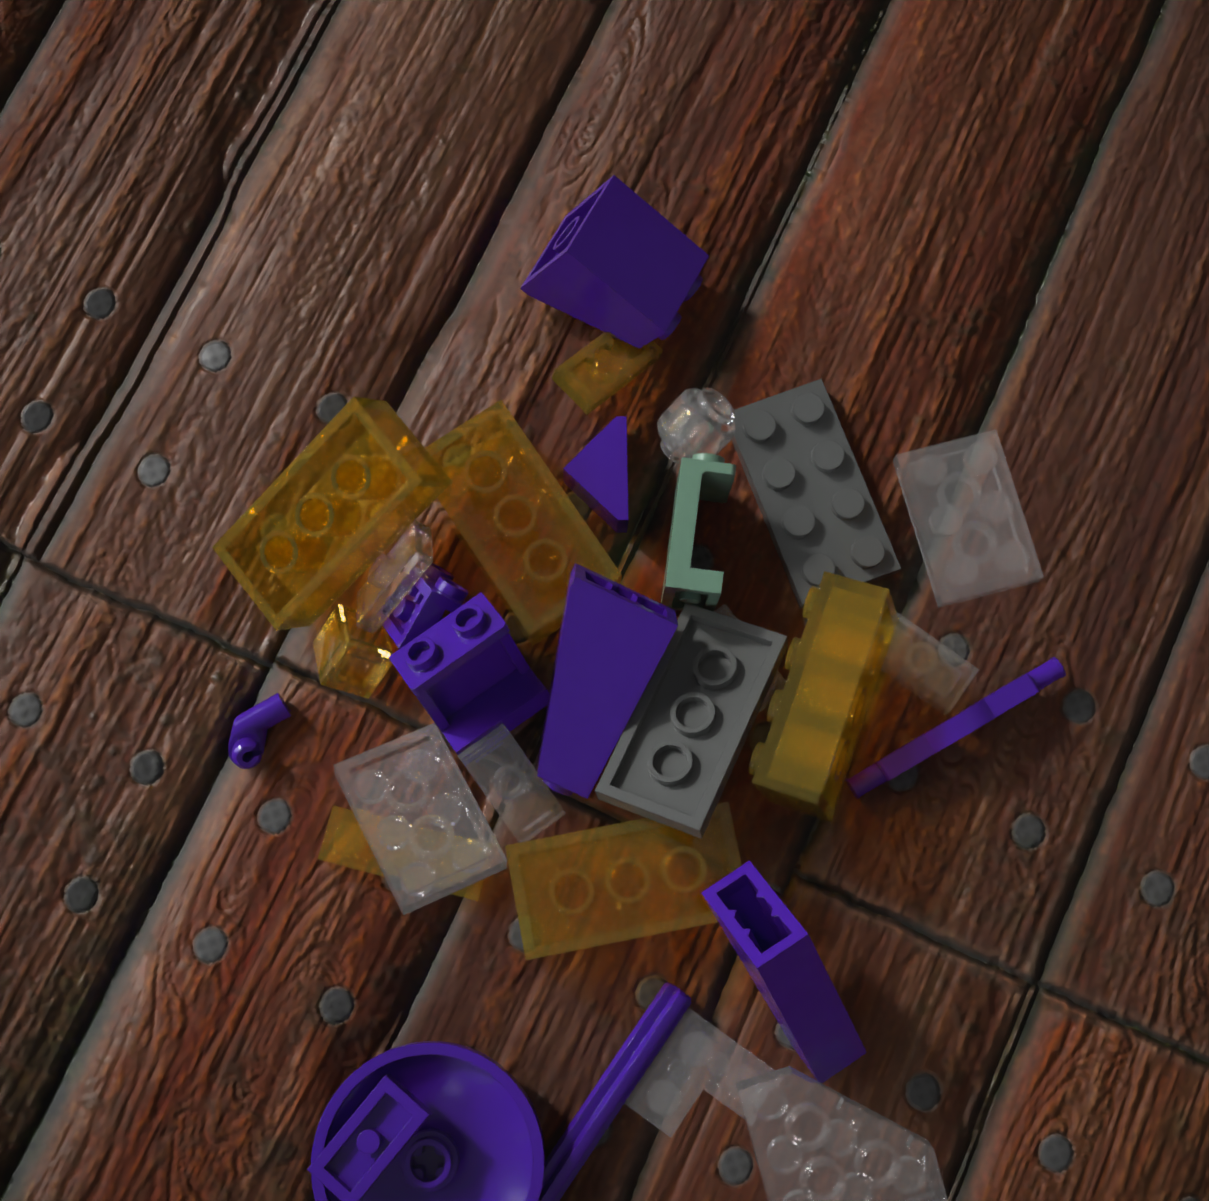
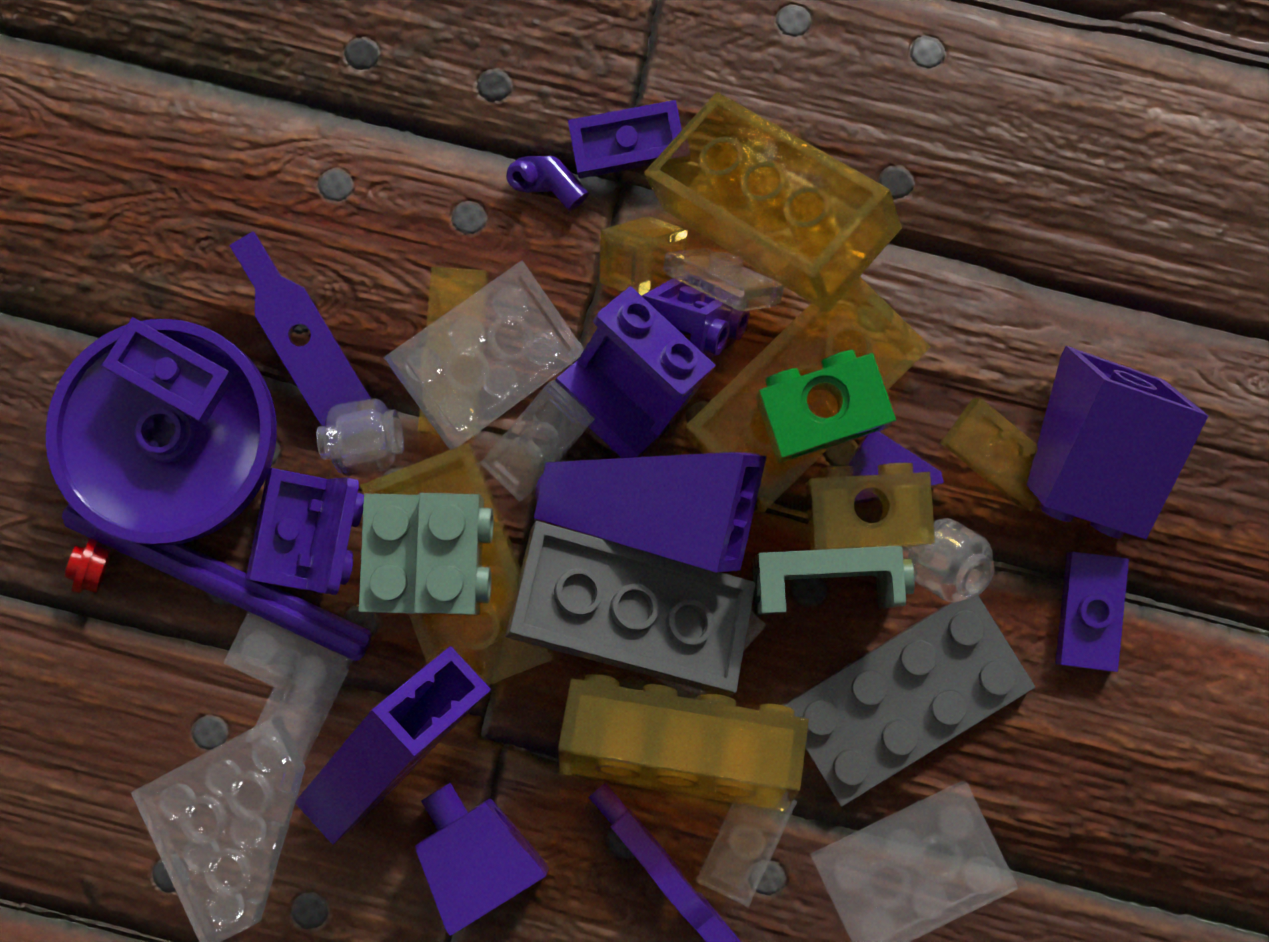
camera: 90 degrees right, 5 degrees up
(233, 647) = (623, 138): none -> dark purple plate
(393, 989) = (282, 305): none -> dark purple piece
(474, 957) = (361, 437): none -> clear head
(547, 469) = (859, 396): none -> green brick
(559, 1026) = (305, 531): none -> dark purple bracket
(607, 904) = (424, 553): none -> sand green plate
(647, 451) = (905, 502): none -> clear yellow brick
(761, 318) = (1092, 611): none -> dark purple plate
(899, 916) = (474, 858): none -> dark purple torso

